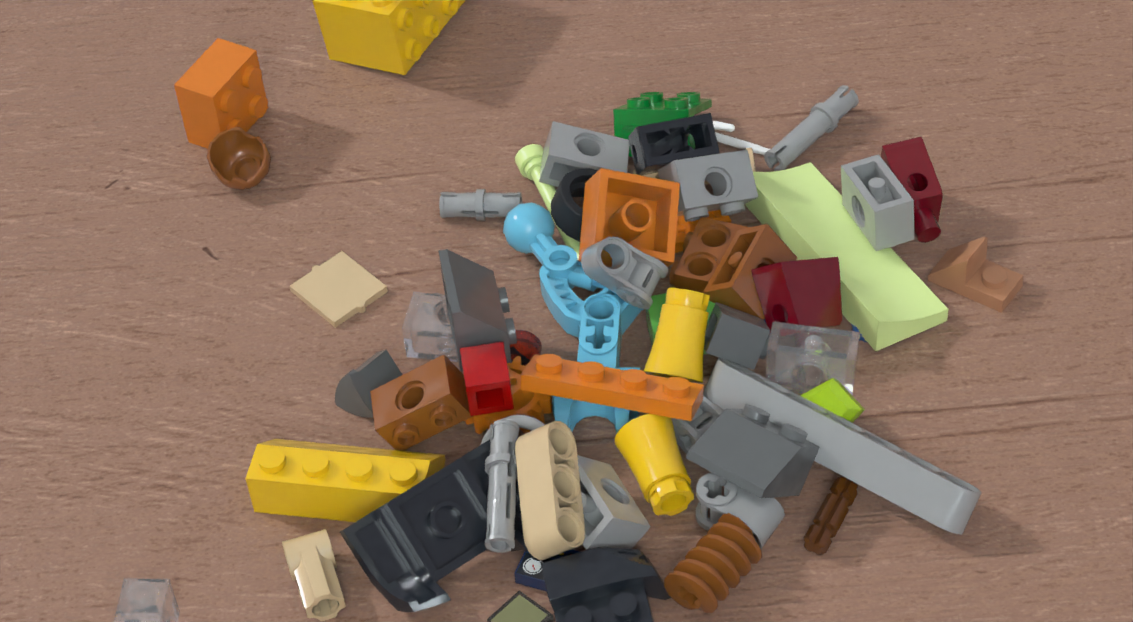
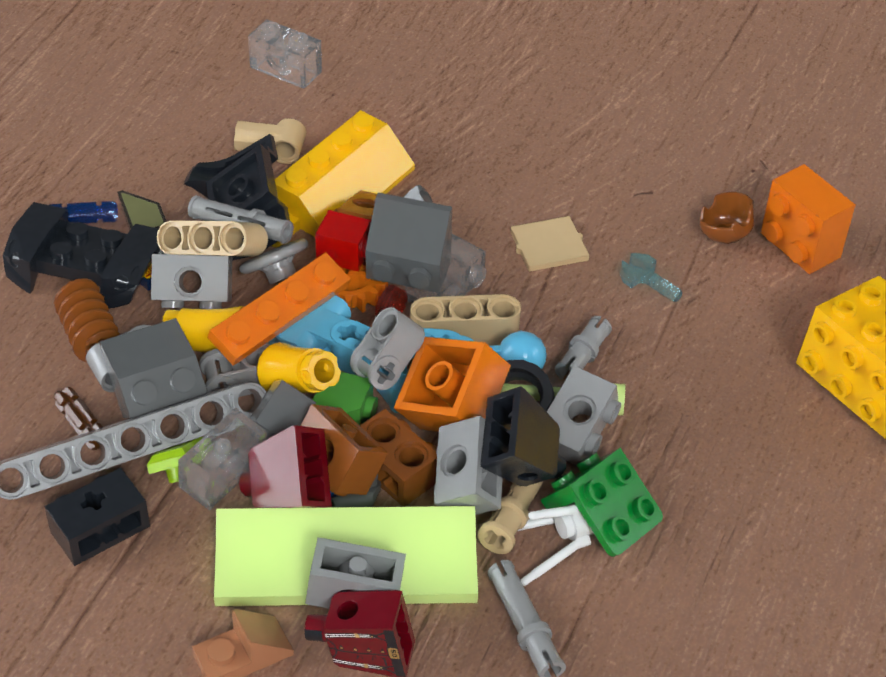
camera: 110 degrees right, 0 degrees up
(348, 201) = (643, 272): none -> clear light blue bar
(523, 295) = (475, 316): none -> tan beam
(935, 425) = (97, 516): none -> black brick

